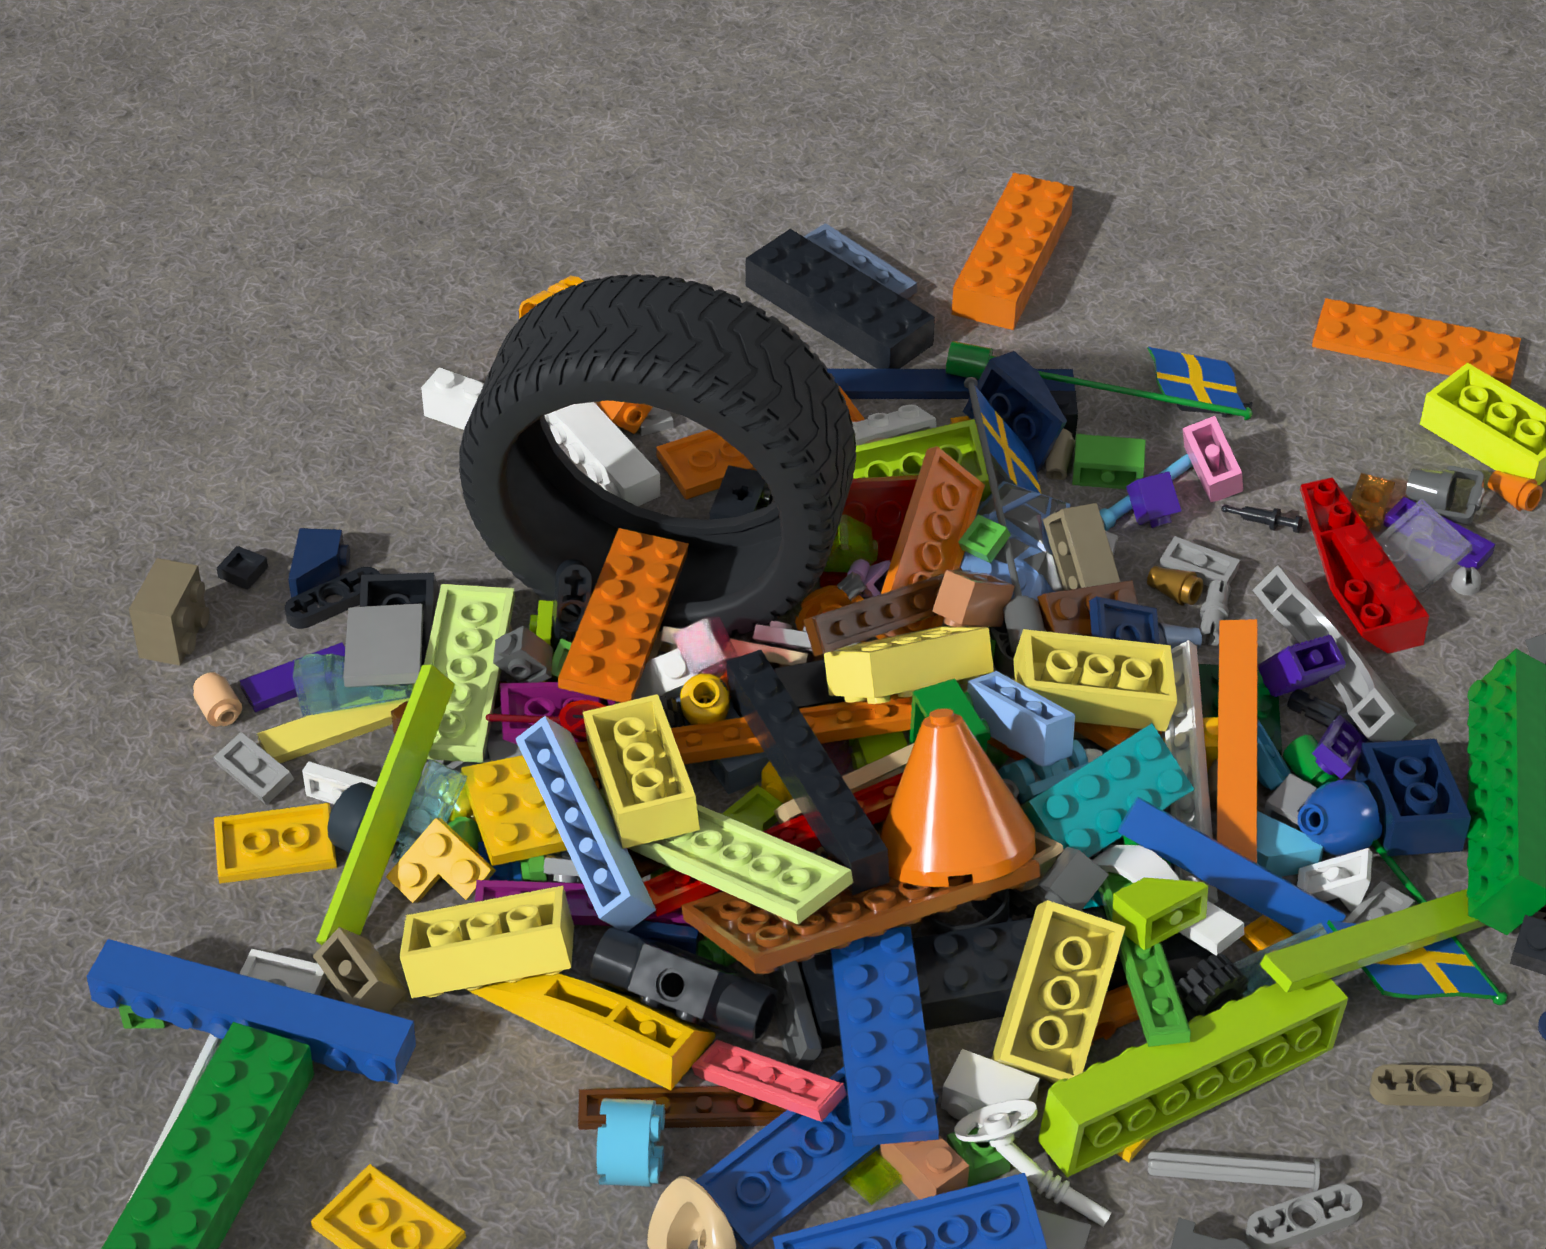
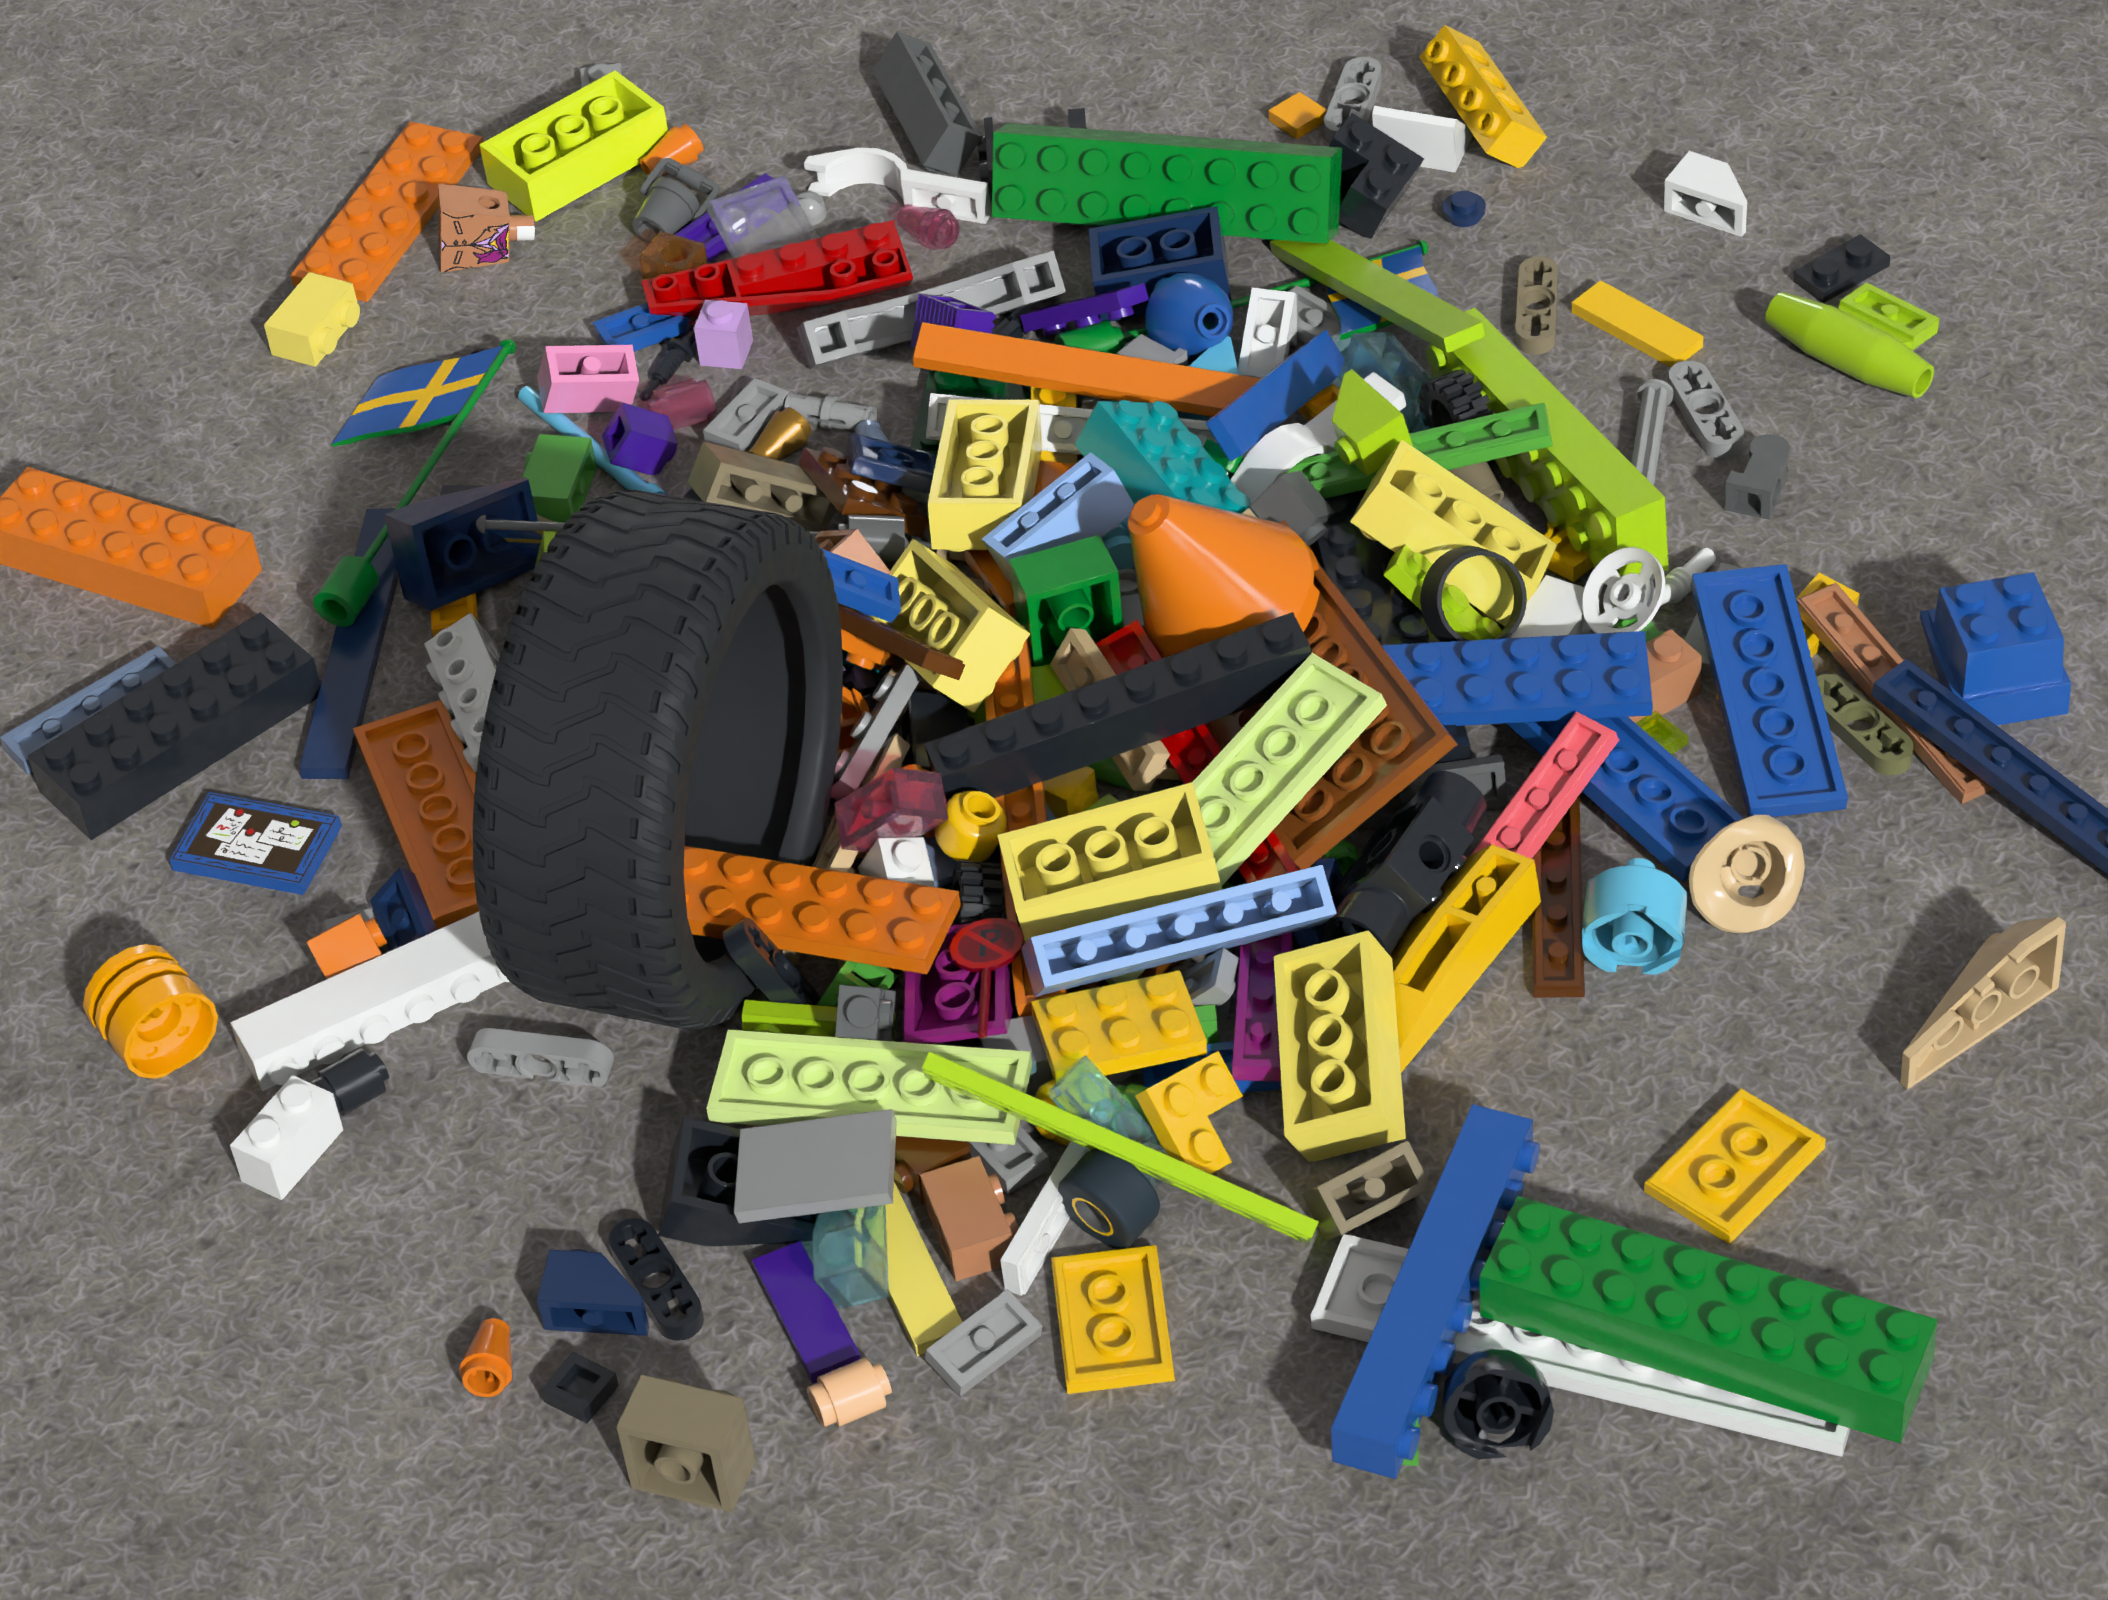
camera: 80 degrees left, 0 degrees up
(157, 1055) = (1503, 1391): none -> black cylinder
(272, 521) = (488, 1359): none -> orange cone
(359, 746) = (968, 1216): none -> nougat brick
(647, 440) = (402, 910): none -> dark blue plate
(927, 593) = (864, 587): none -> blue plate
(984, 998) = (1407, 574): none -> lime plate
(1001, 1006) = (1433, 585): none -> black tyre
(1206, 523) = (684, 402): none -> clear pink brick
(1272, 313) = (312, 319): none -> light yellow brick
(1285, 486) = (638, 328): none -> blue plate
(1288, 536) = (723, 334): none -> lavender brick
(1384, 380) = (477, 227): none -> nougat torso
(1418, 1166) = (1637, 324): none -> yellow tile
(1453, 655) = (930, 225): none -> clear pink cone
(1504, 630) = (839, 169): none -> white piece

